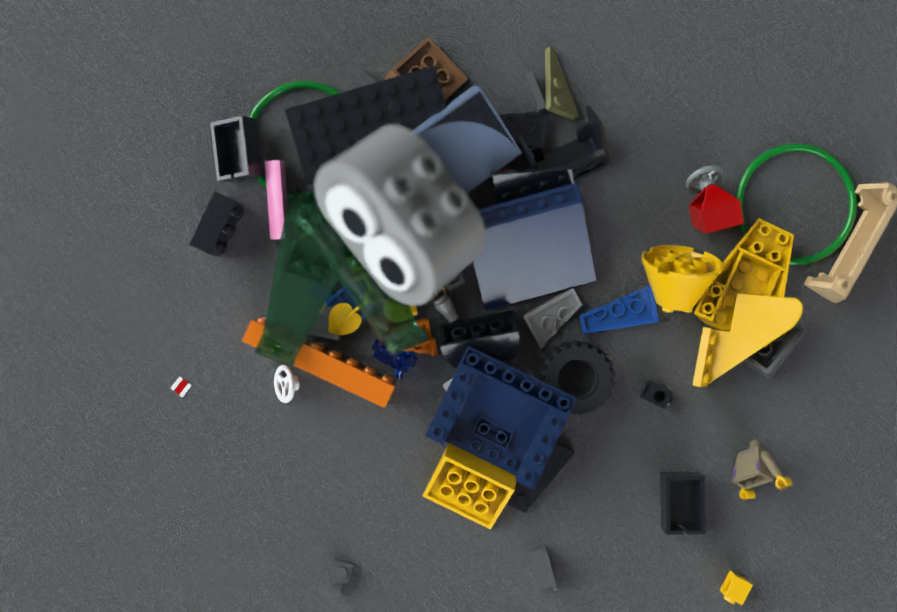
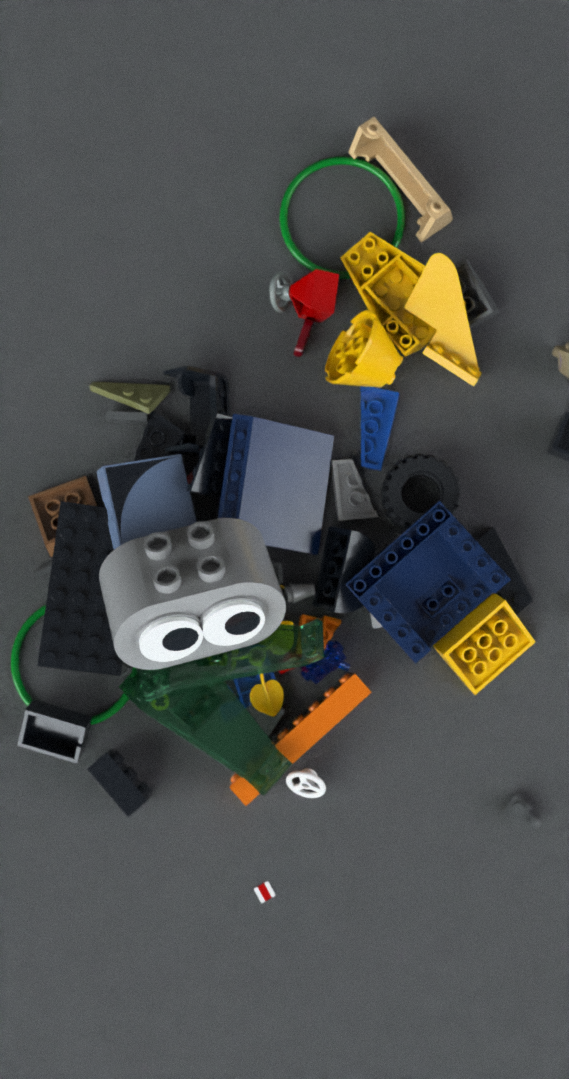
camera: 70 degrees left, 5 degrees down
(276, 196) = (119, 712): bright pink brick -> none
(649, 391) = (462, 428): black brick -> none
(672, 216) = (303, 338): none -> dark red tile

